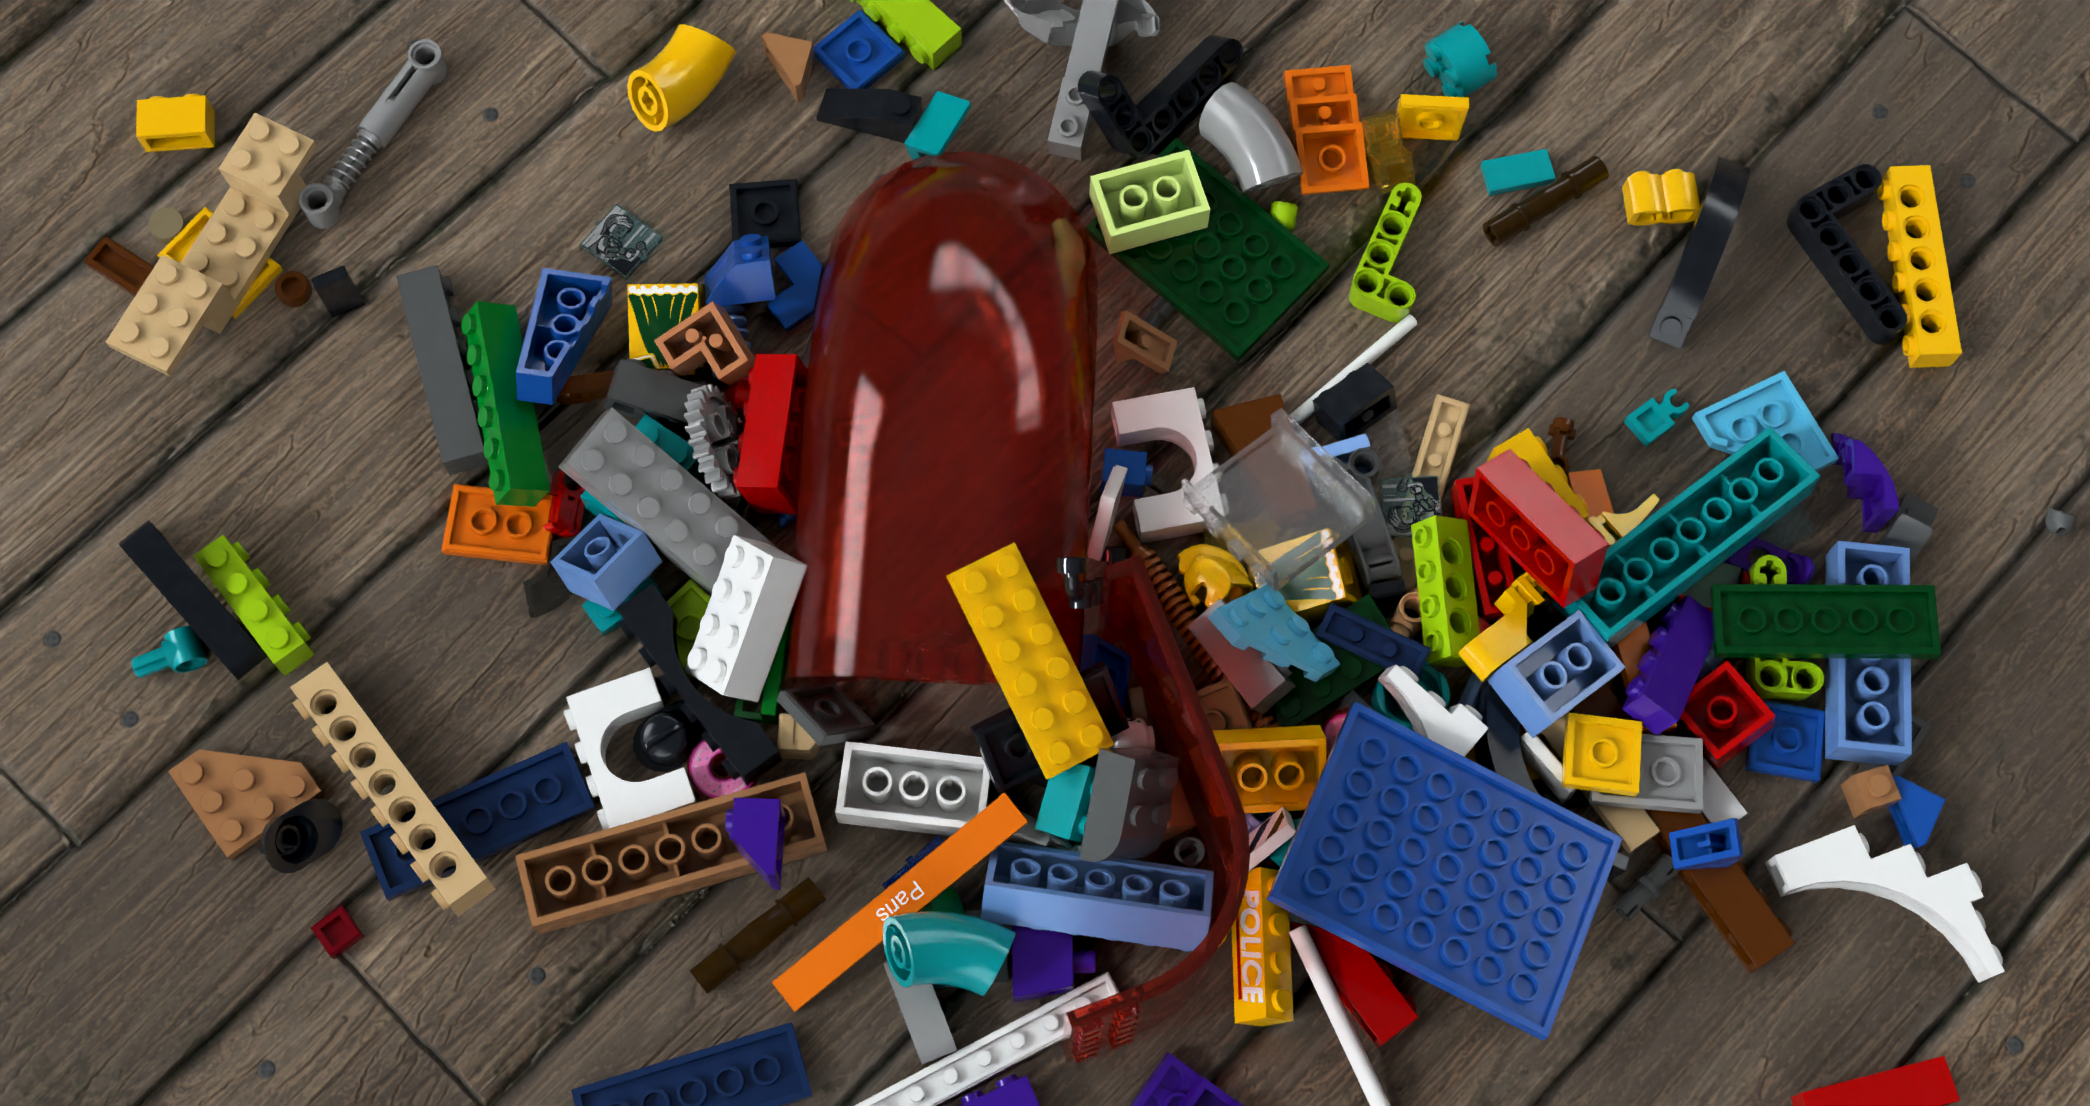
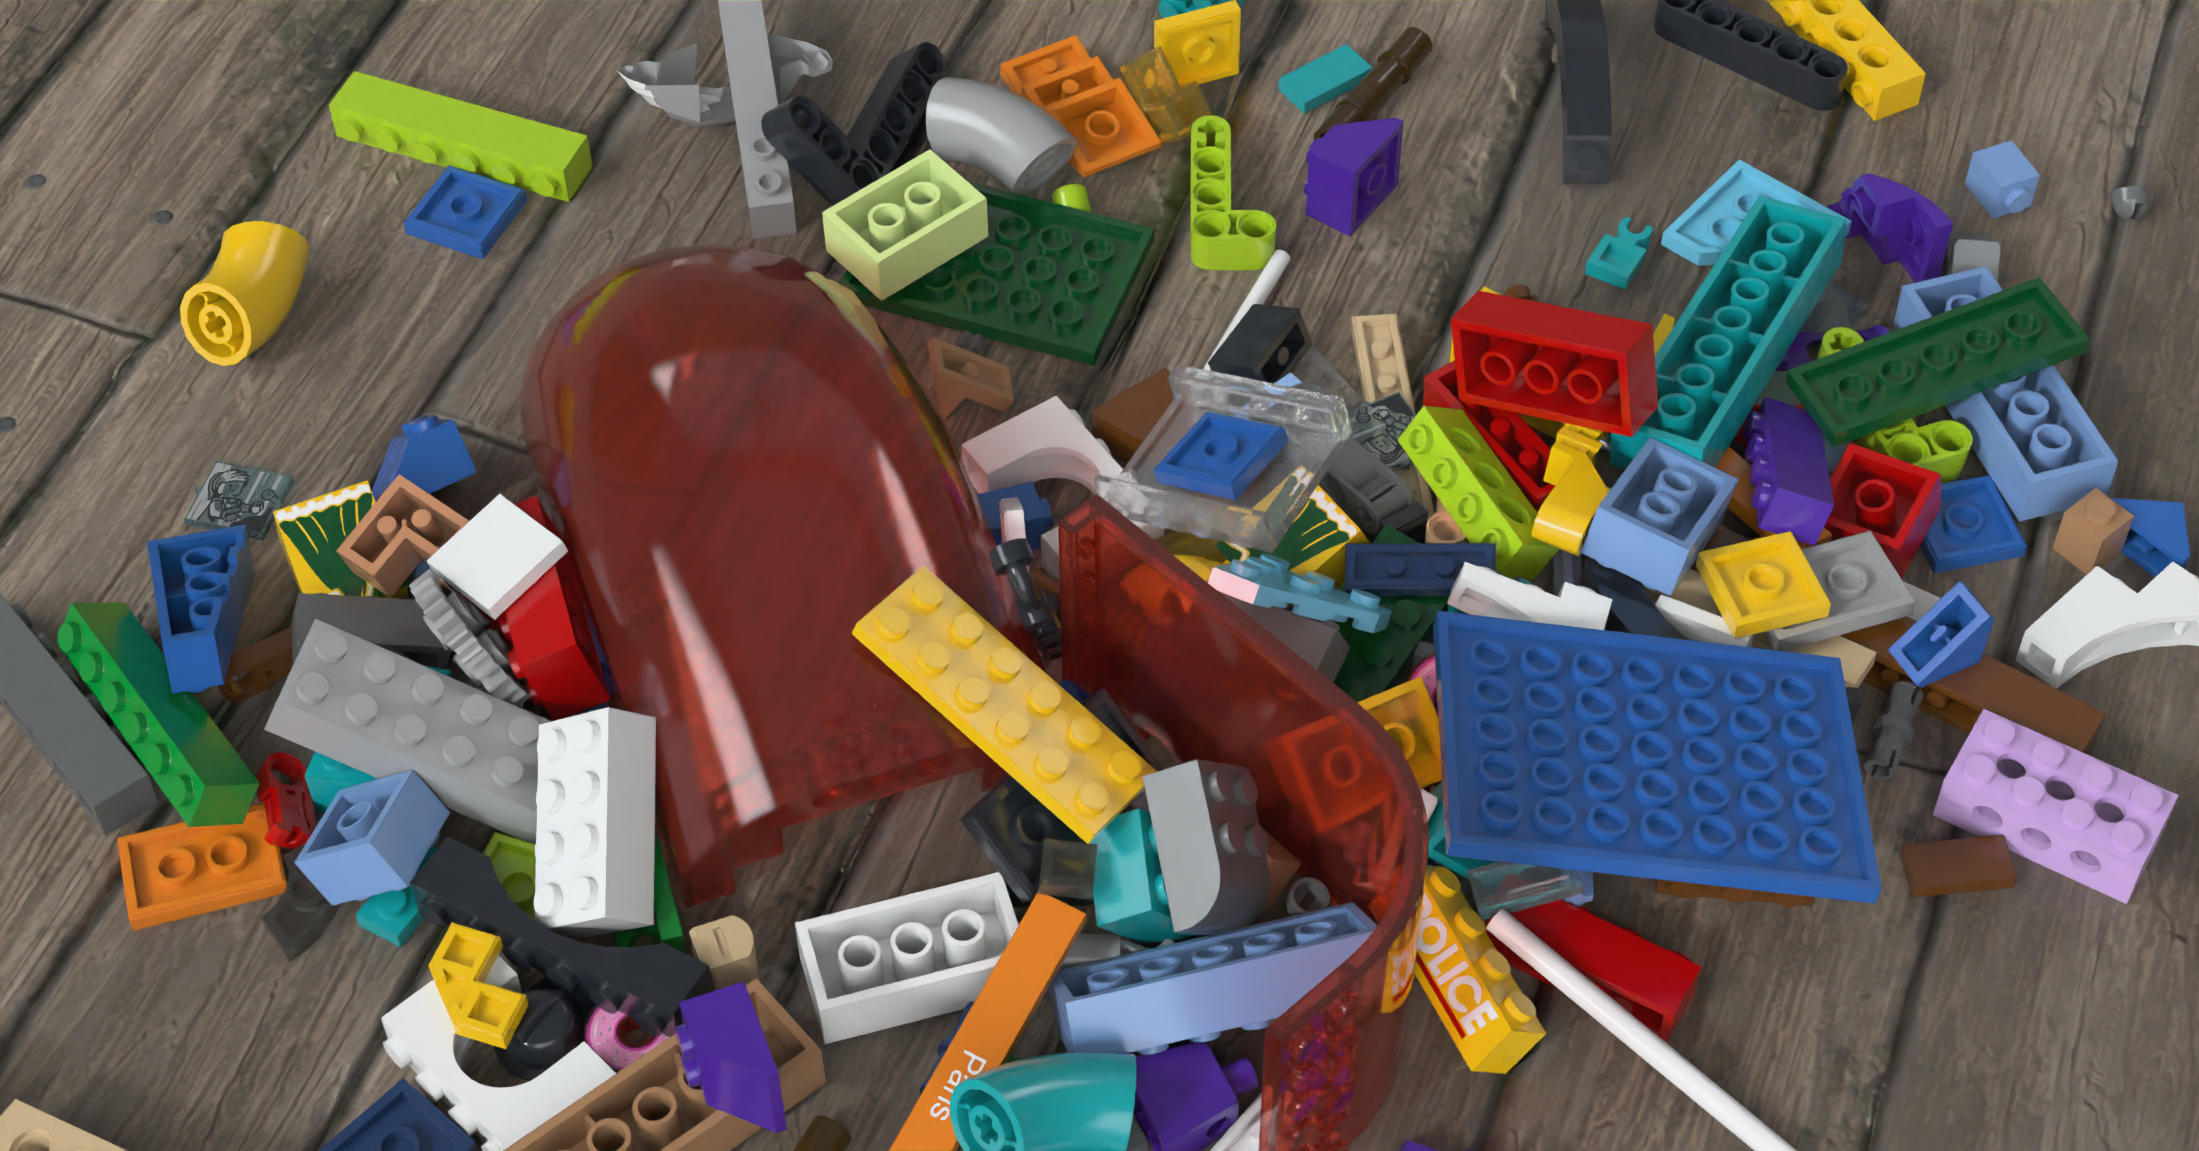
camera: 20 degrees left, 20 degrees down
(623, 688) = (473, 1006): none -> yellow tile
(752, 394) = (497, 556): none -> white tile
(766, 210) = (415, 394): black tile -> none
(791, 59) = (380, 239): medium nougat slope -> none
(799, 300) = (501, 459): blue tile -> none
(826, 713) = (752, 905): dark grey tile -> none
(872, 111) = (519, 257): black slope -> none
(937, 125) = (602, 238): teal panel -> none
(1028, 786) = (1067, 869): none -> clear smoke tile
(1277, 497) = (1221, 455): none -> blue tile
(1491, 275) = (1352, 172): none -> dark purple slope
(1636, 1005) = (1958, 866): none -> reddish brown tile
(1660, 198) = (1503, 47): yellow brick -> none
(1748, 990) = (2055, 805): none -> lavender brick
(1972, 465) = (2002, 179): none -> medium blue brick

